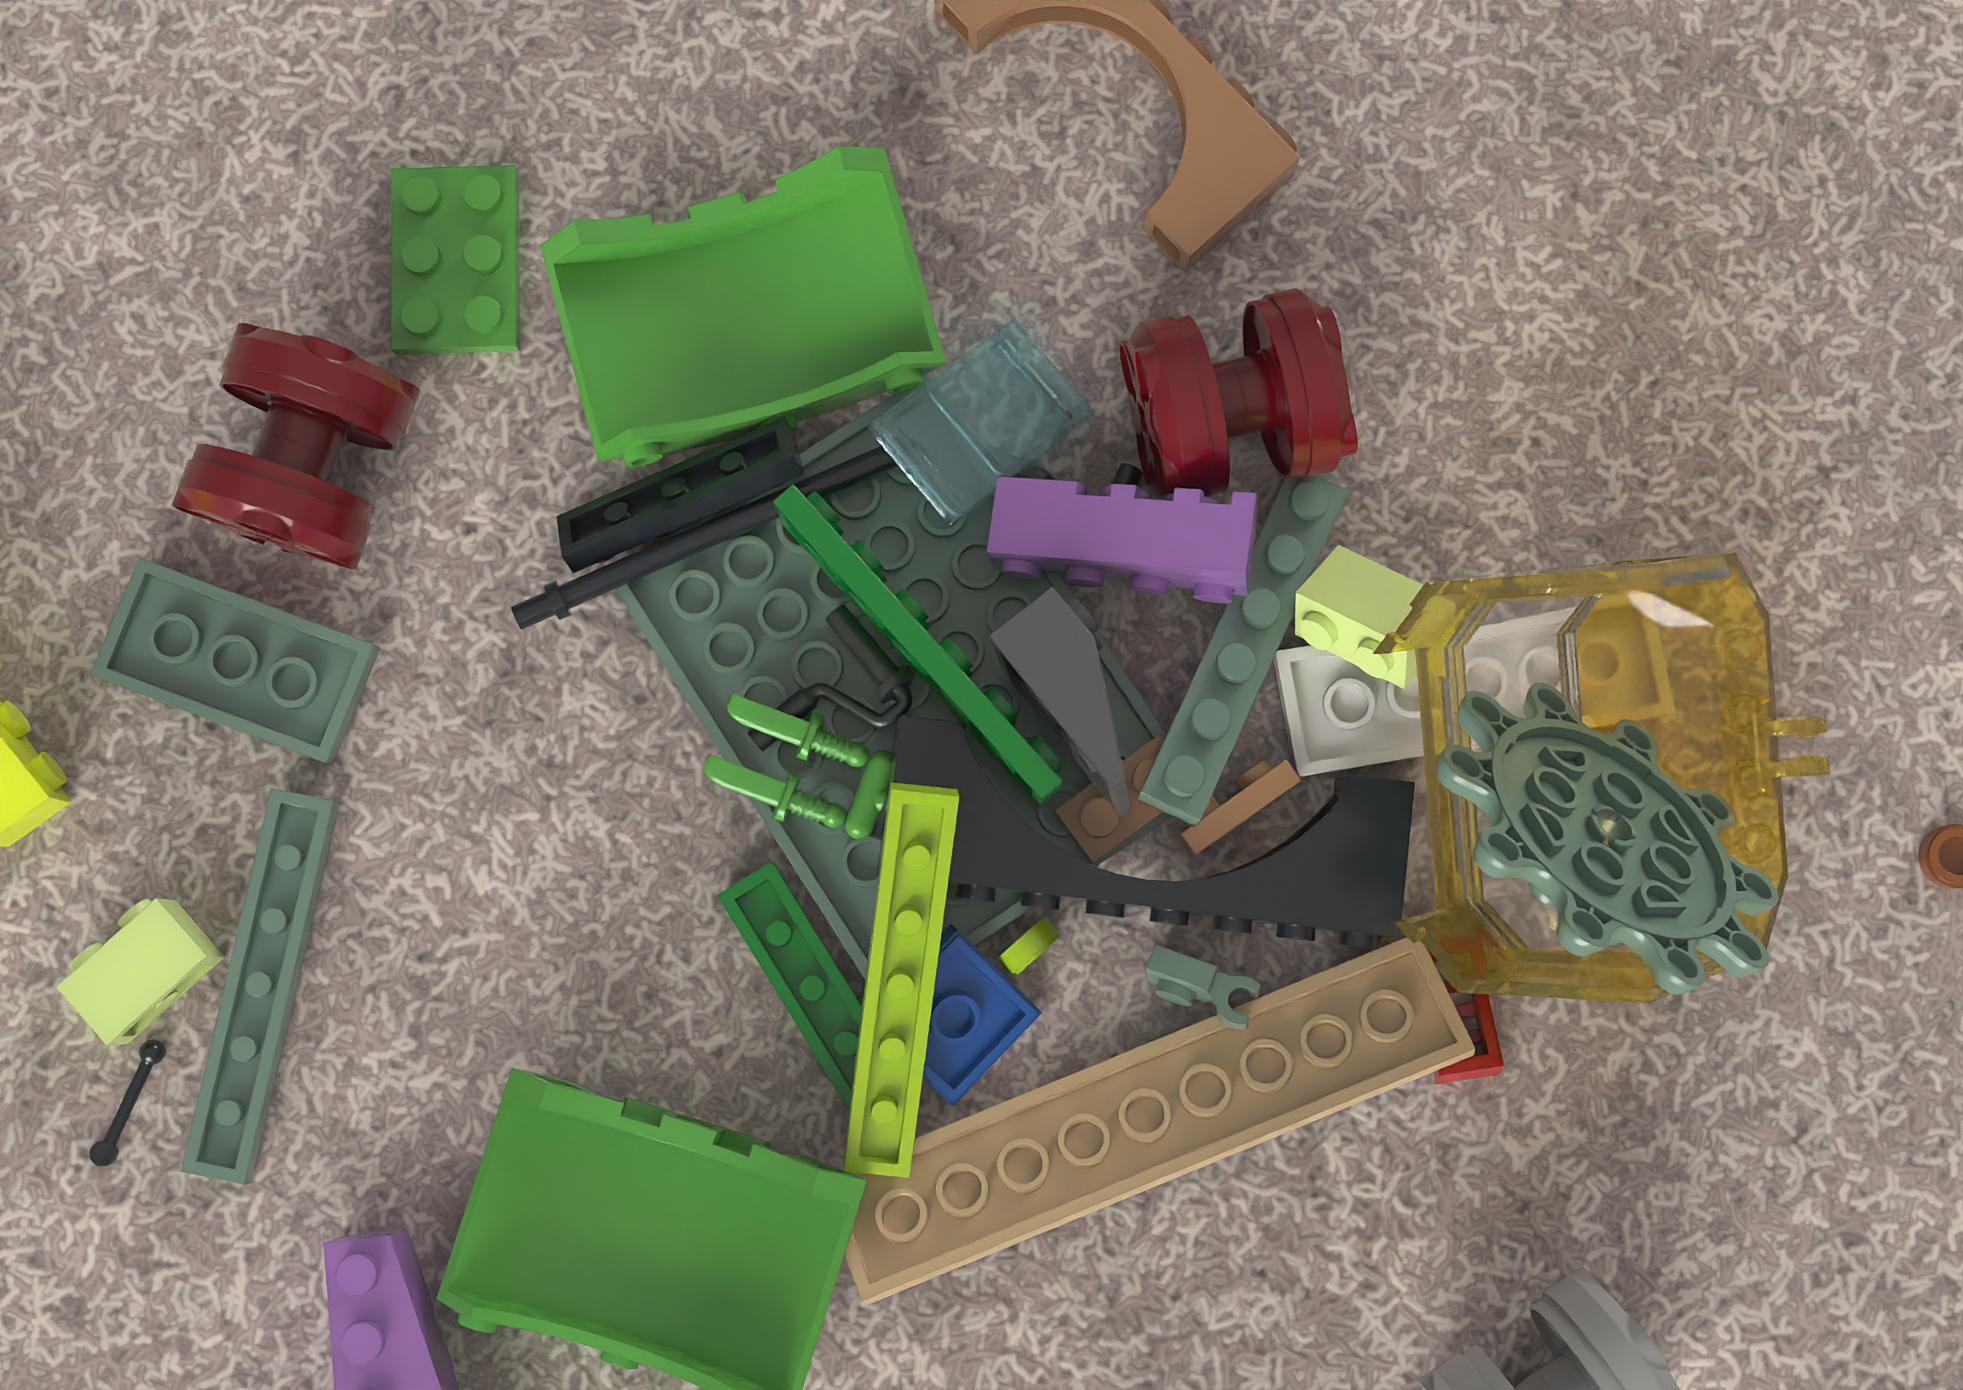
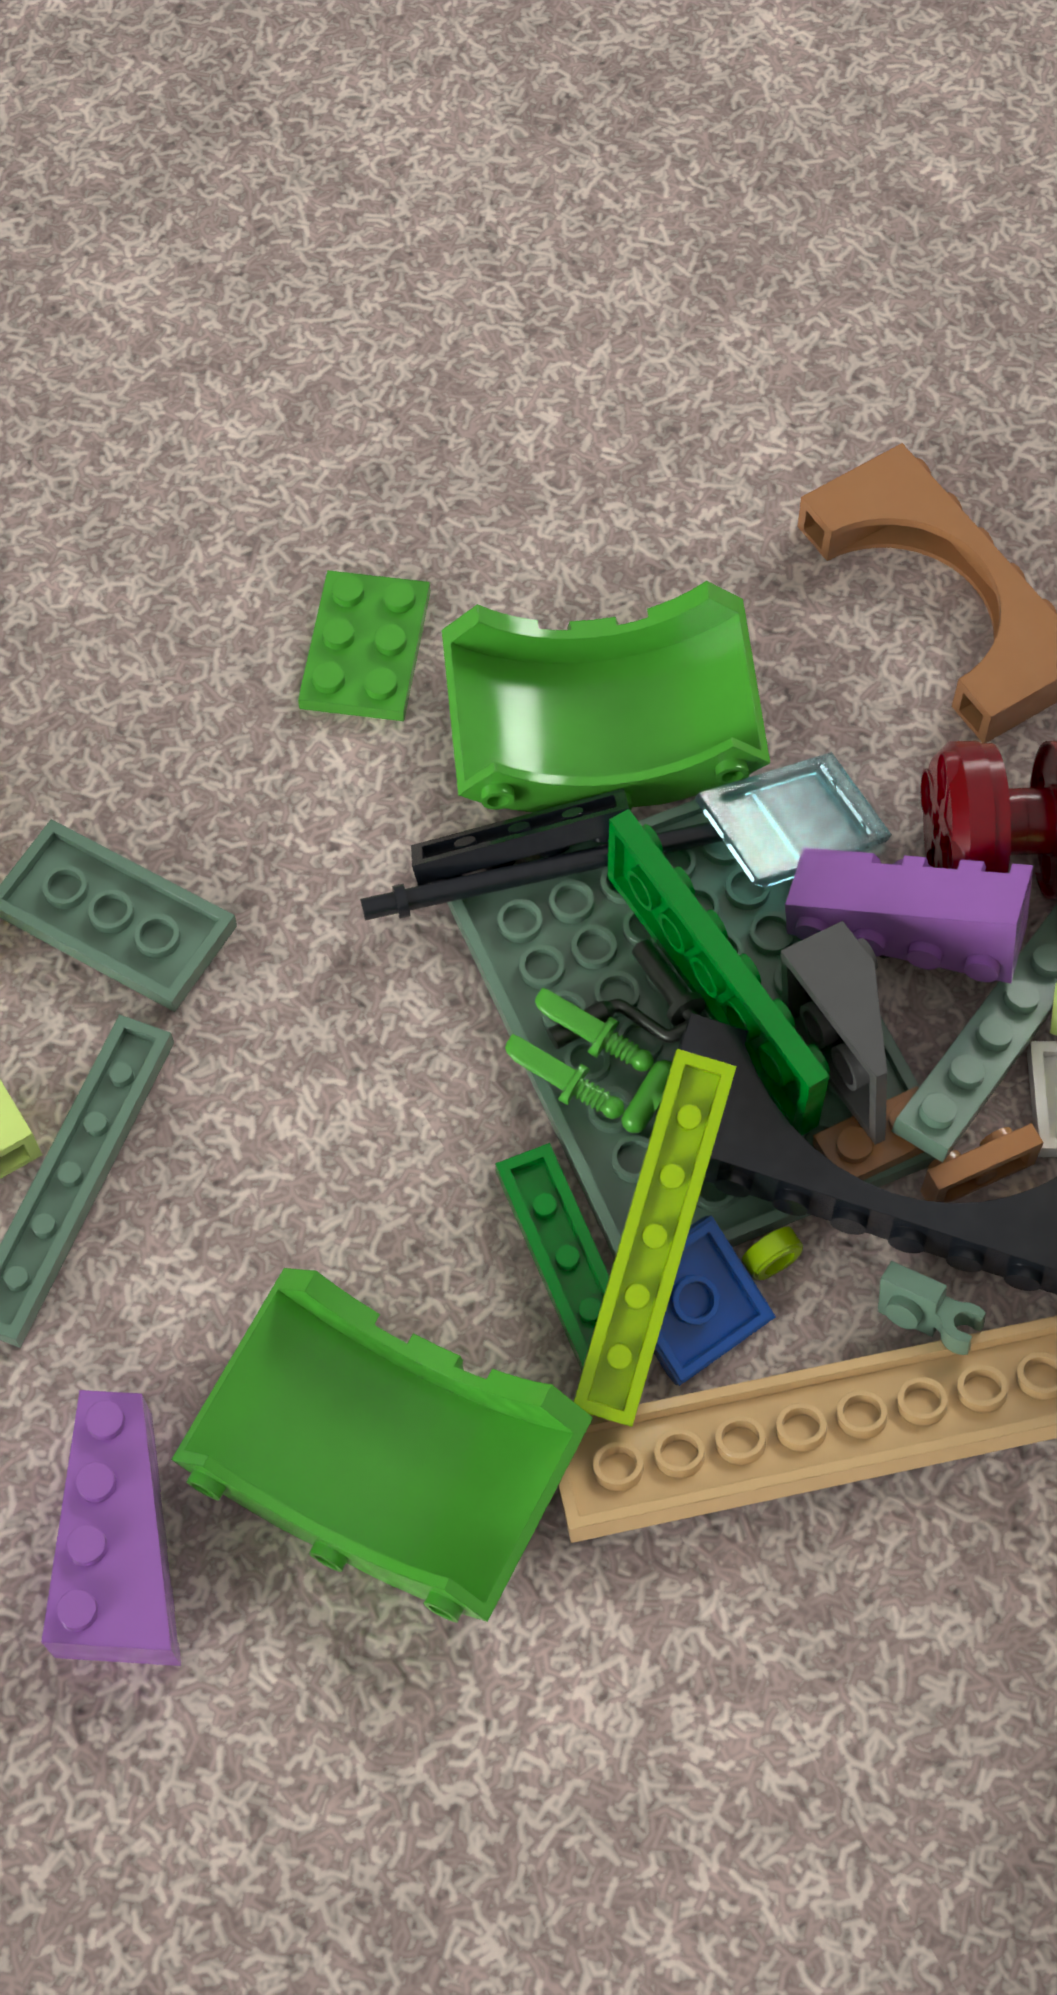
camera: 10 degrees right, 20 degrees down
(311, 401) = (185, 766): dark red wheel -> none

